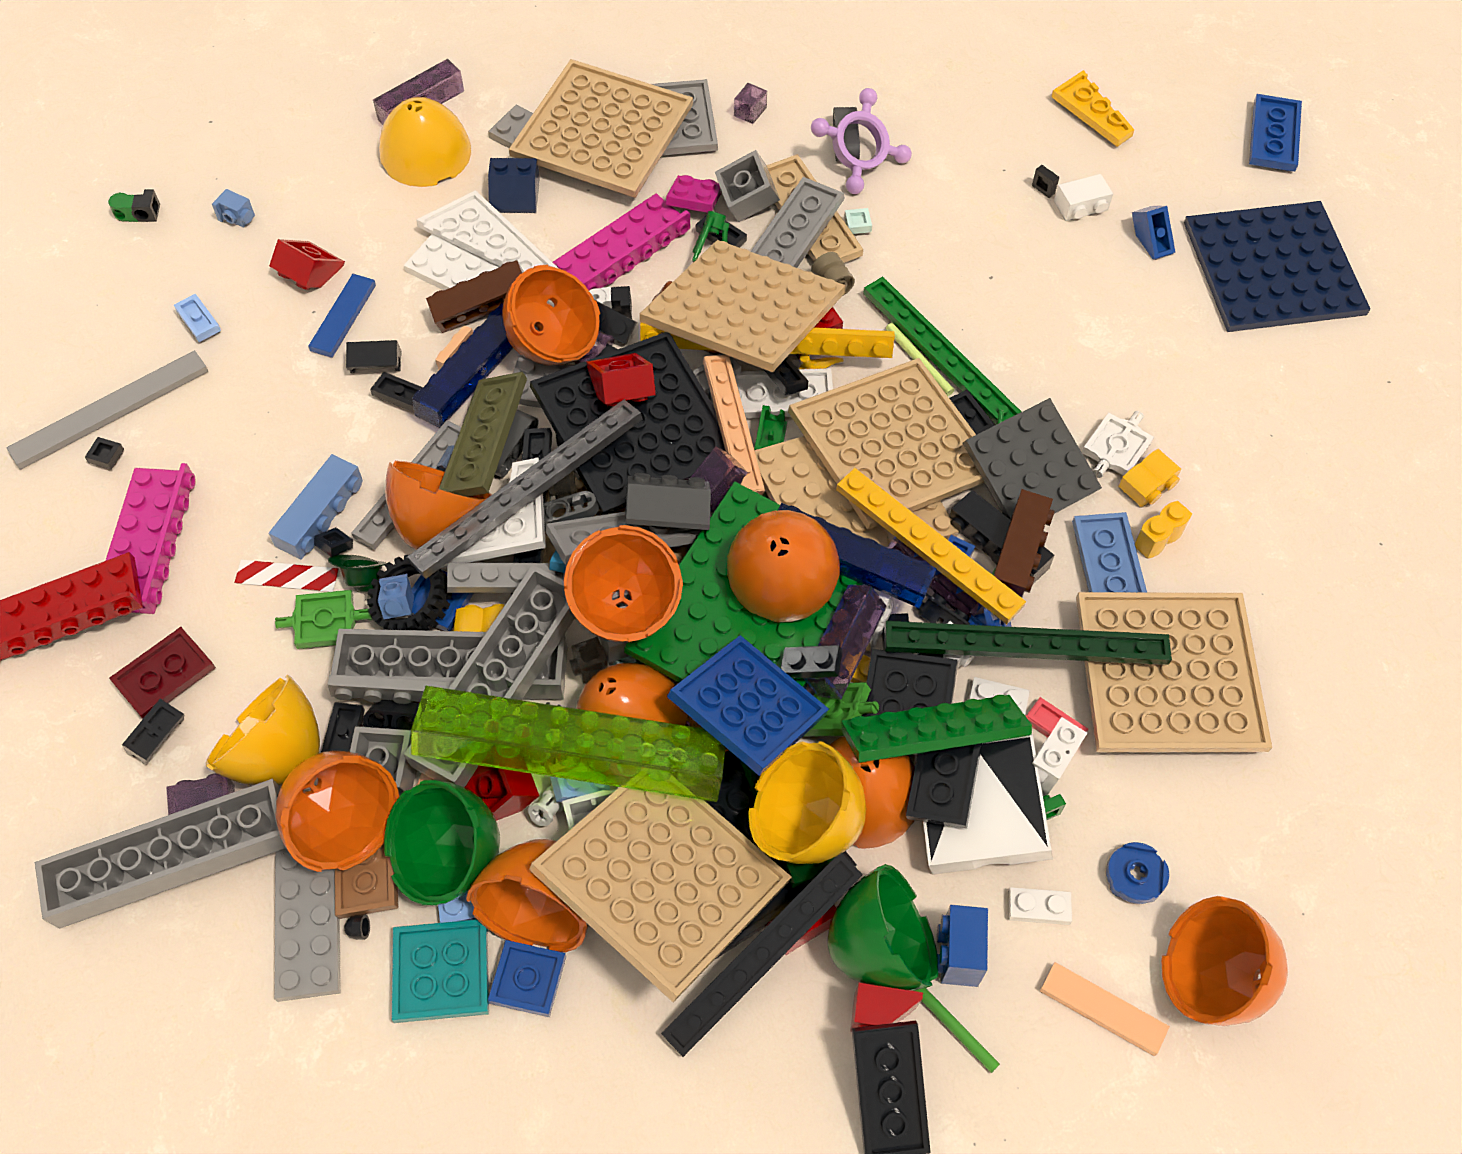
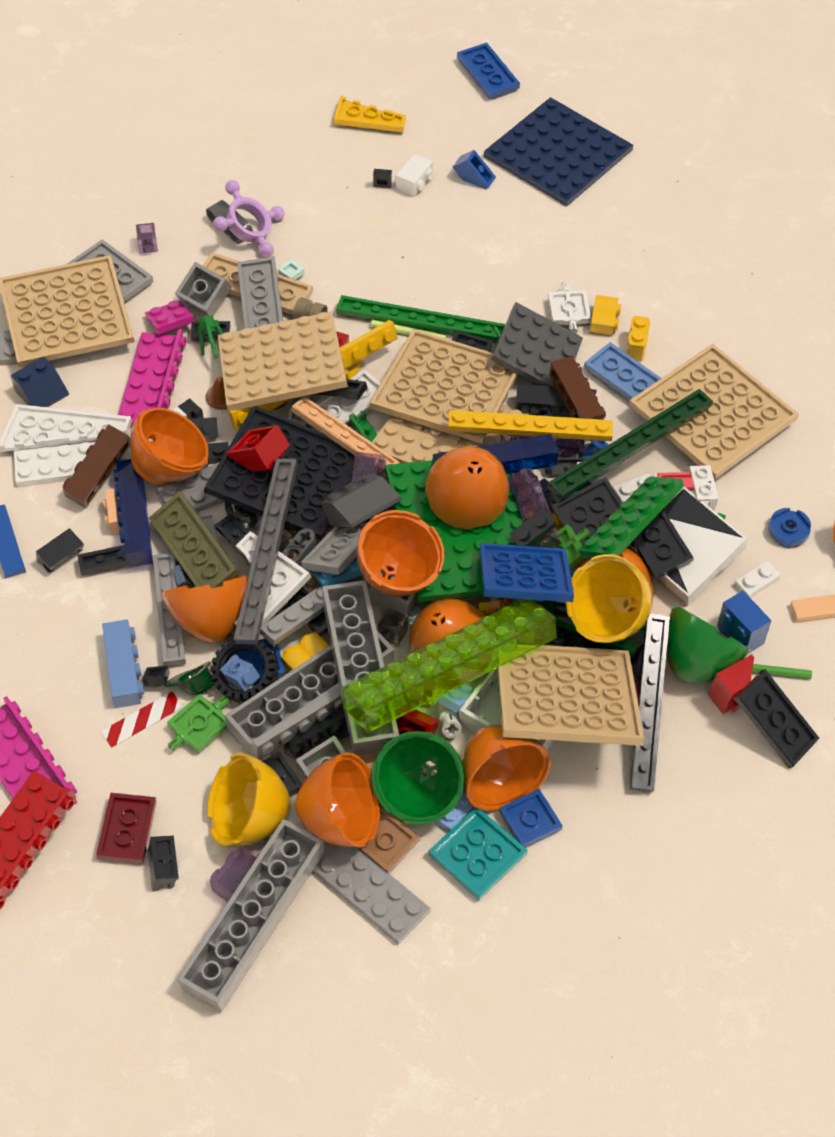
camera: 40 degrees left, 5 degrees down
(358, 927) = (405, 869): black hinge -> none

